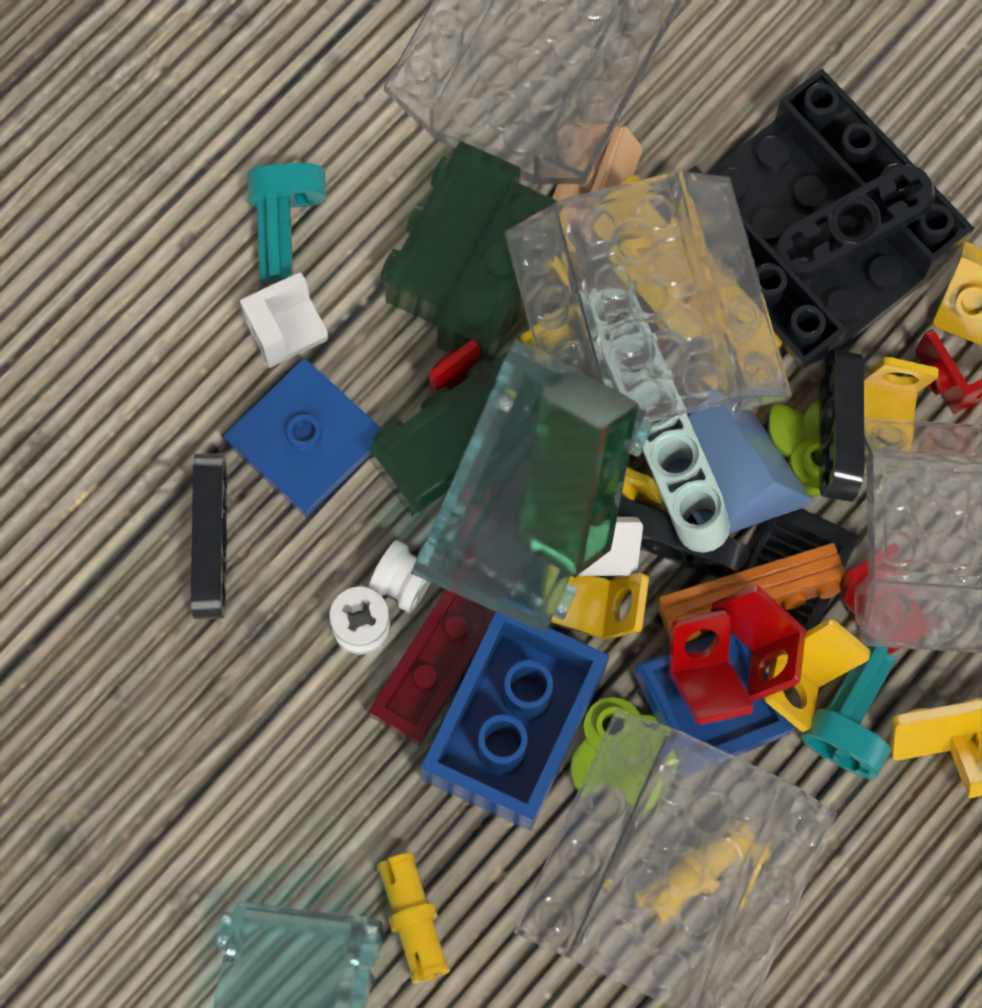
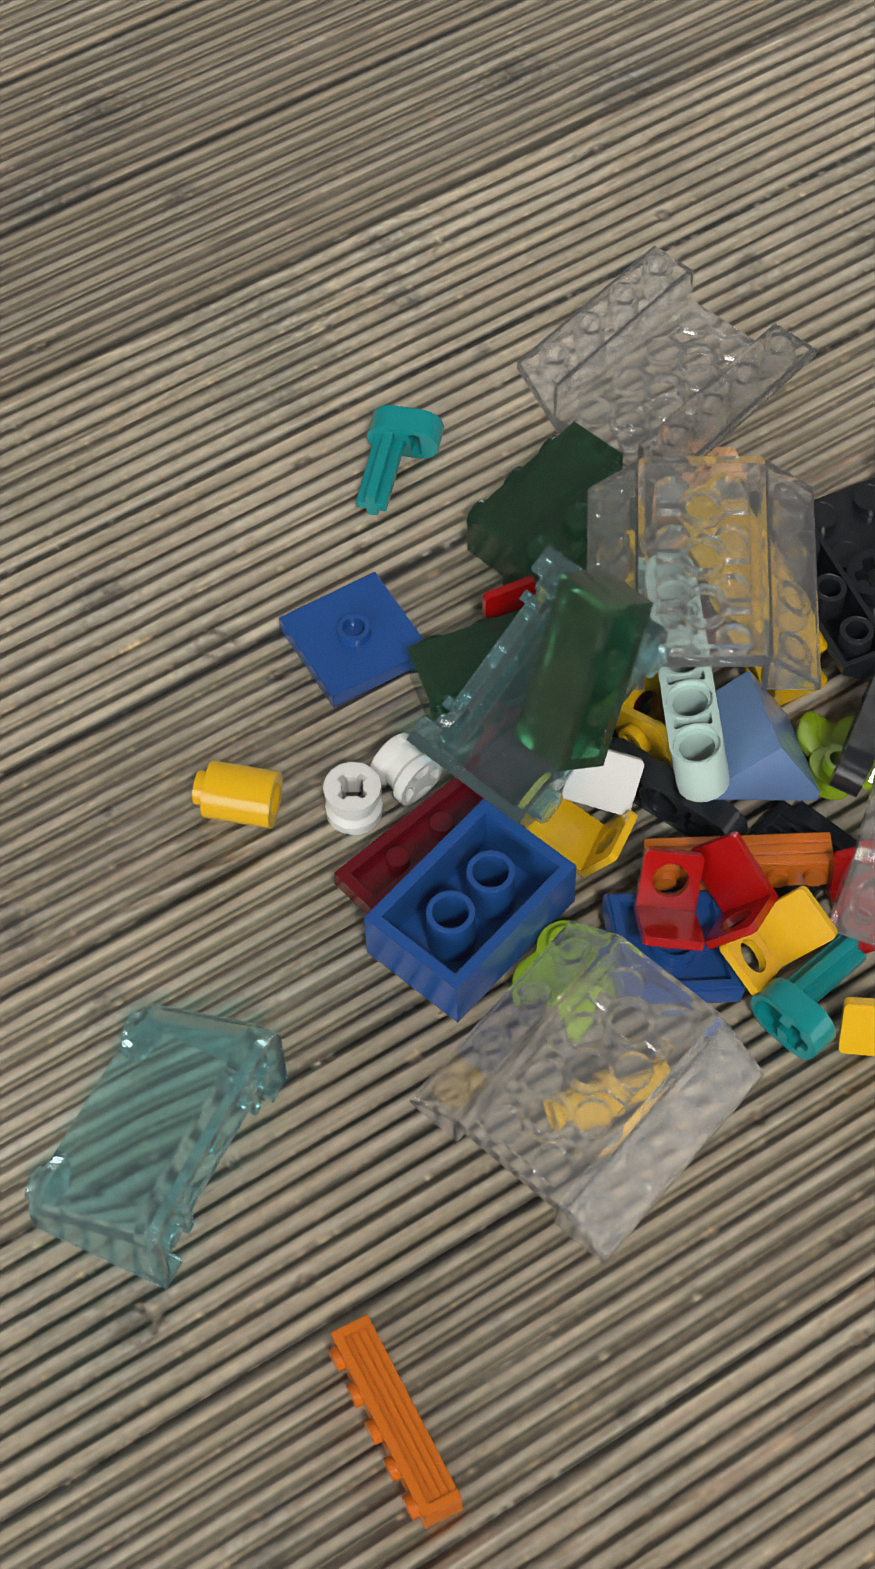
camera: 20 degrees right, 15 degrees down
(209, 536) = (237, 694): black beam -> none
(245, 647) = (238, 794): none -> yellow brick
(283, 320) = (366, 536): white panel -> none
(413, 918) = (317, 1066): yellow pin -> none

